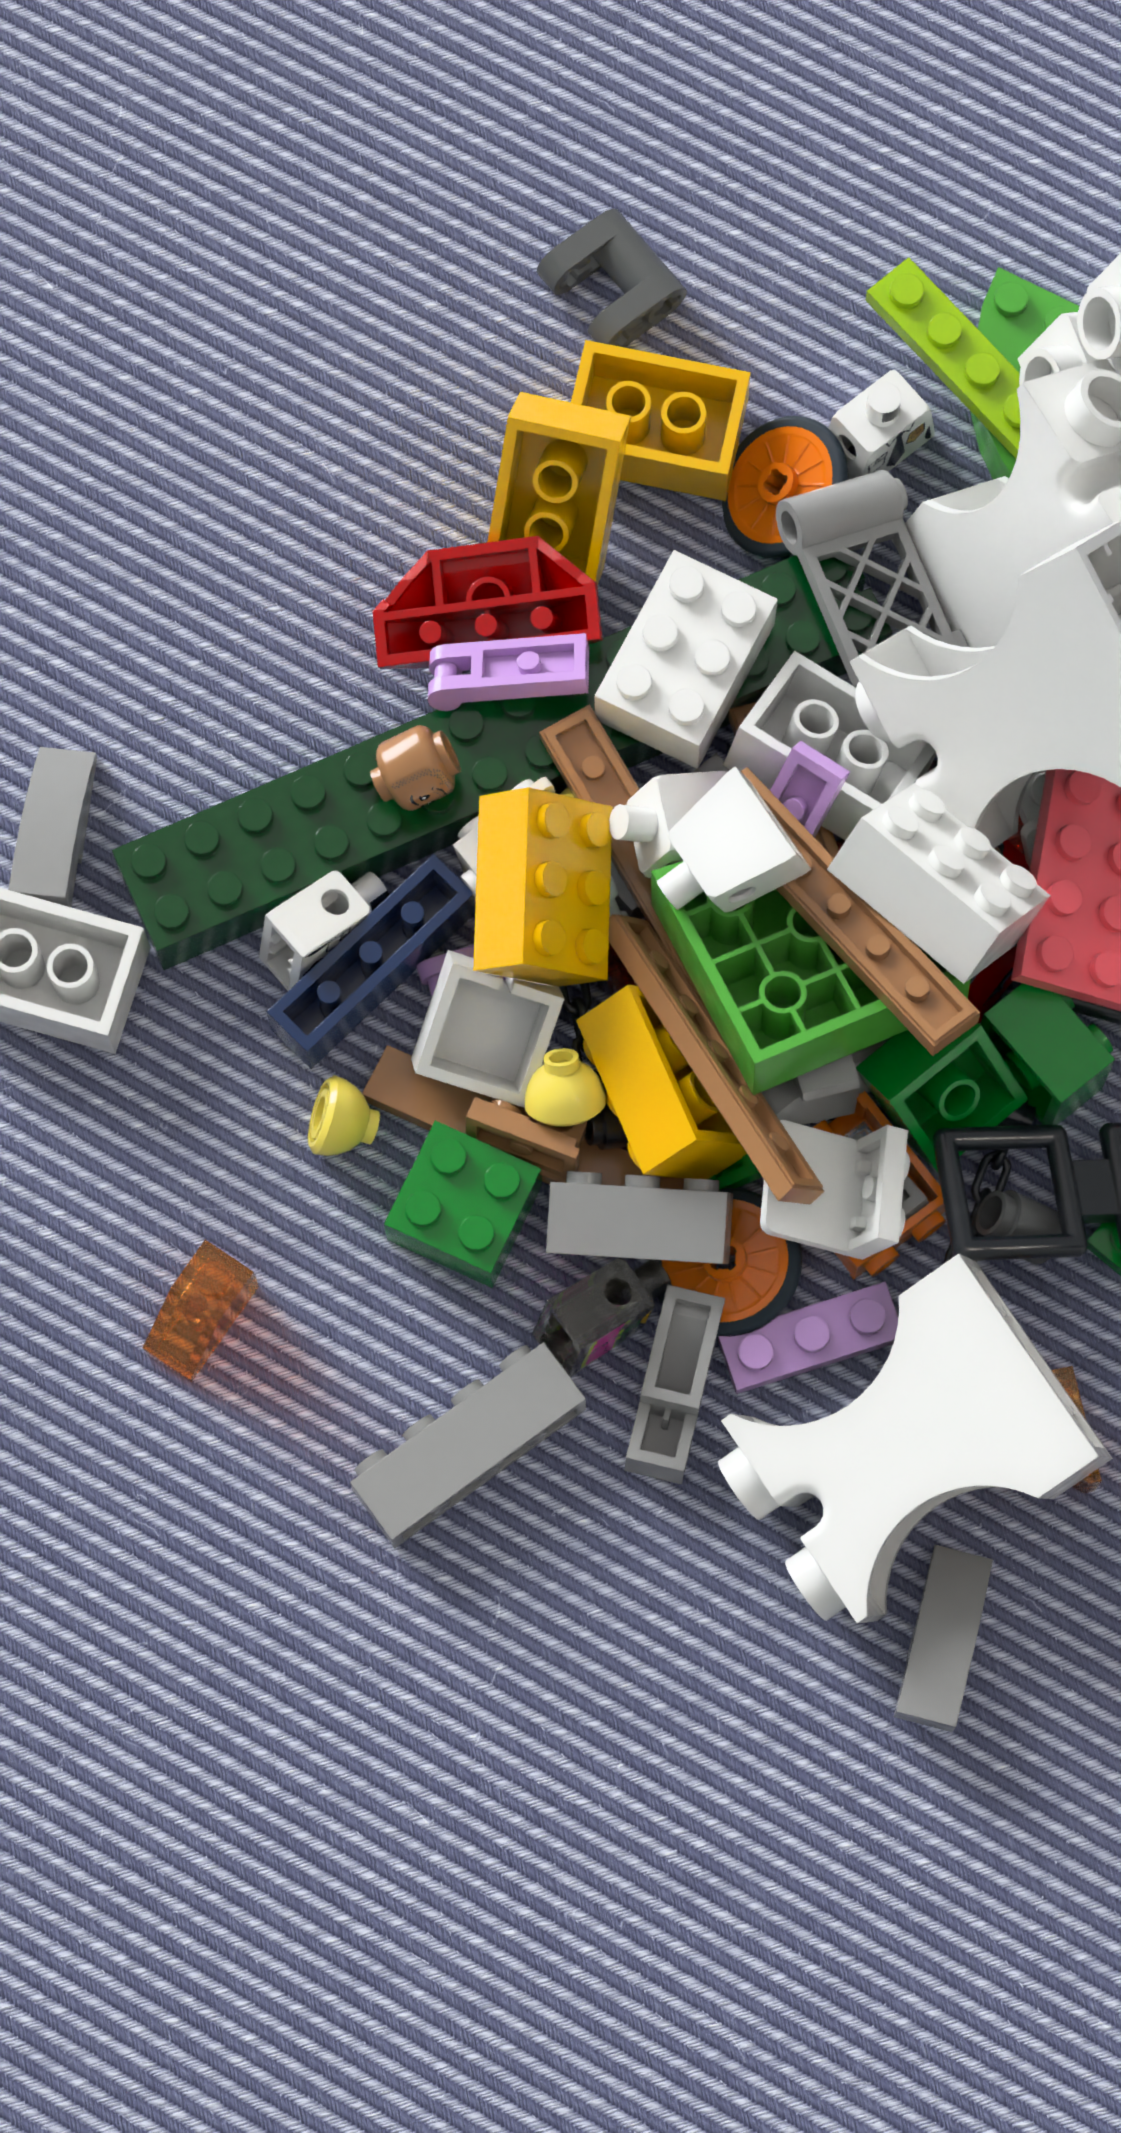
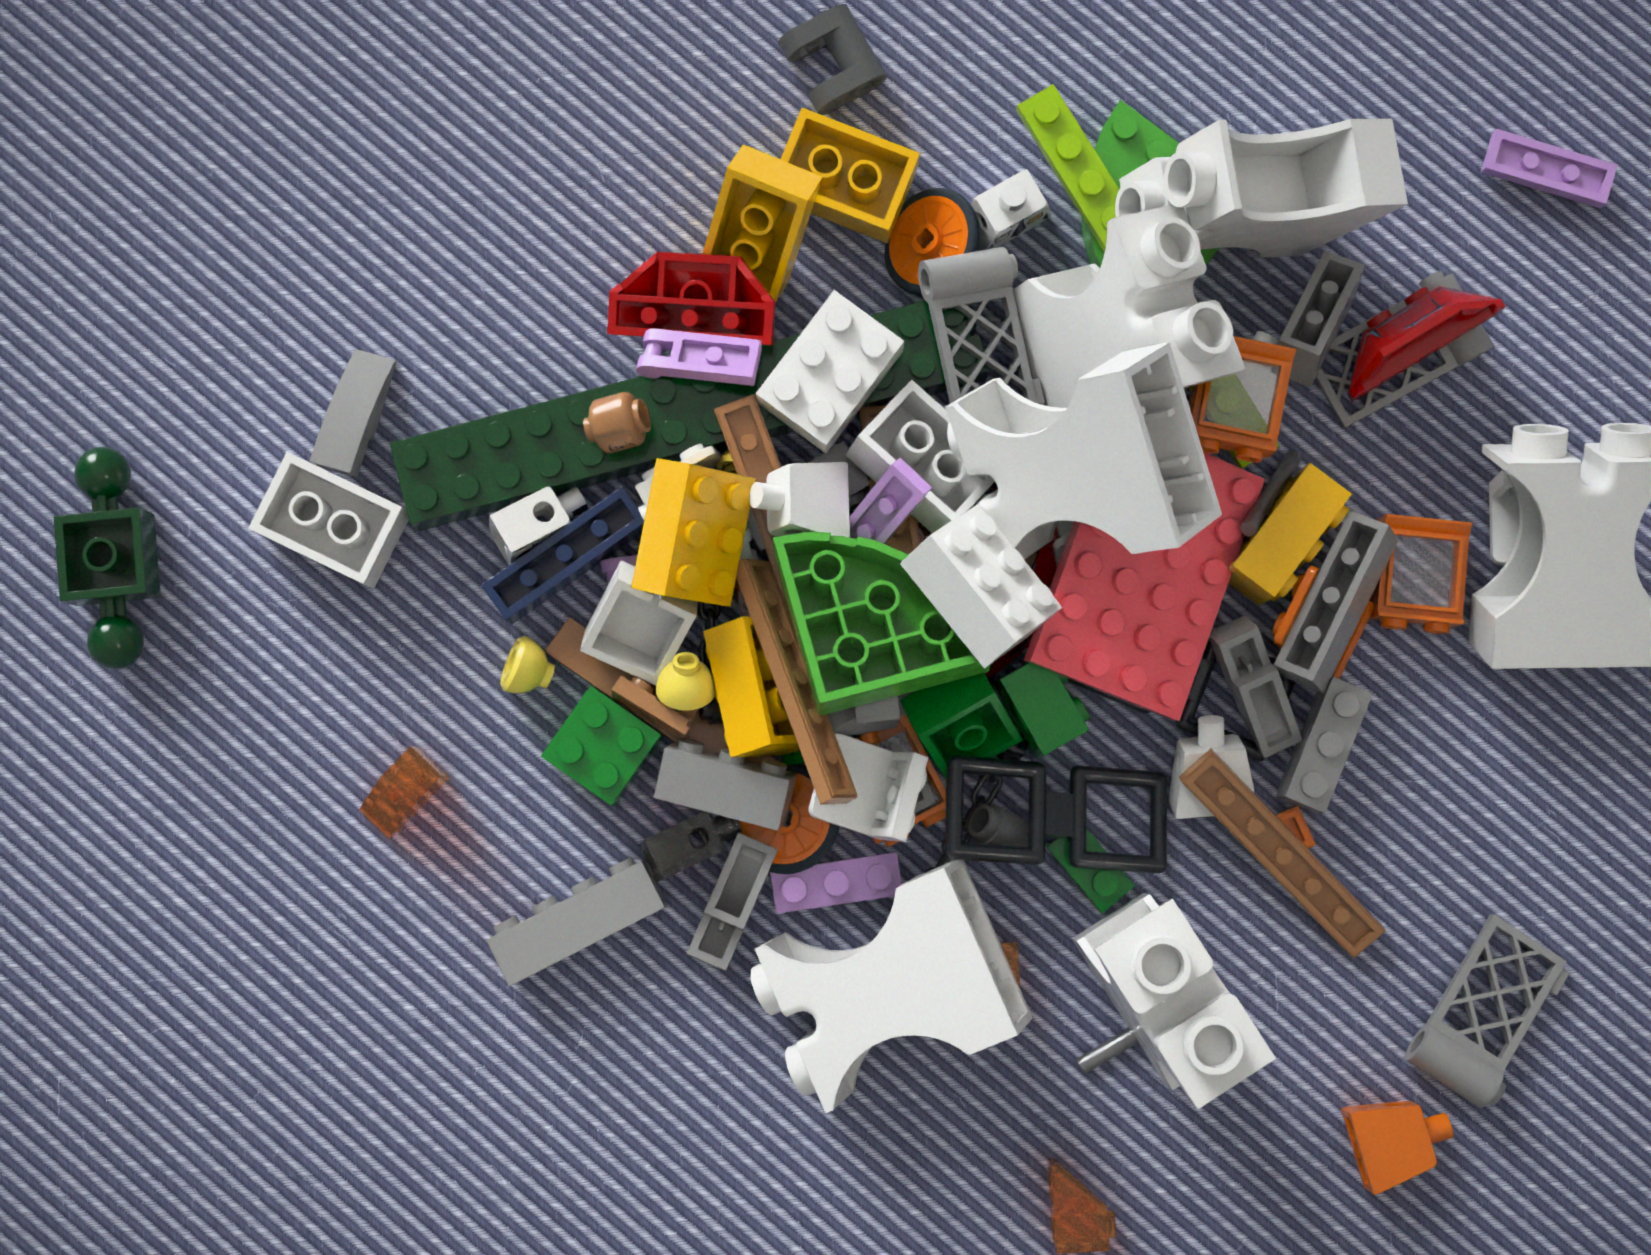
camera: 10 degrees right, 10 degrees up
(730, 848) = (831, 535): white torso -> none
(870, 944) = (918, 621): medium nougat tile -> none
(943, 1639) = (890, 1119): light grey slope -> none

